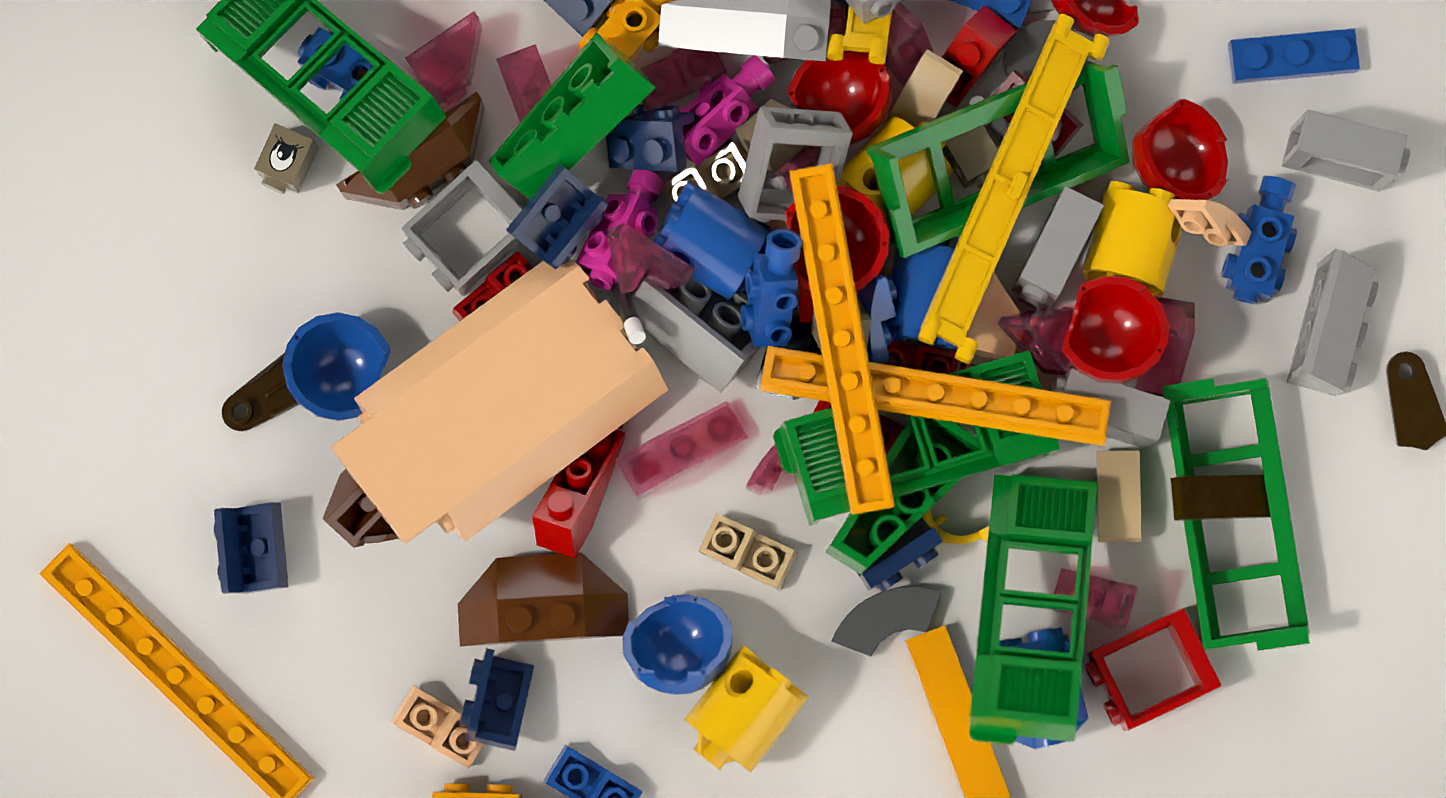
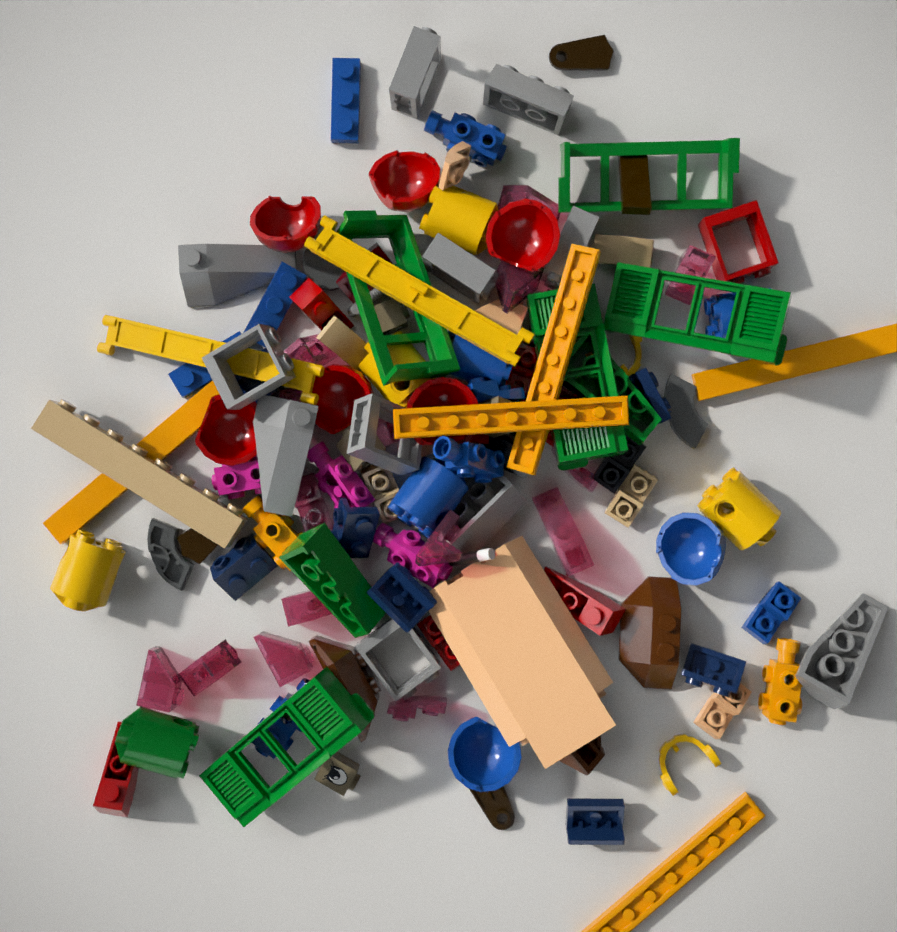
camera: 85 degrees left, 5 degrees up
(325, 650) = (709, 752): none -> yellow piece
(392, 253) = (430, 705): none -> clear pink slope
(788, 524) = (616, 468): none -> black slope

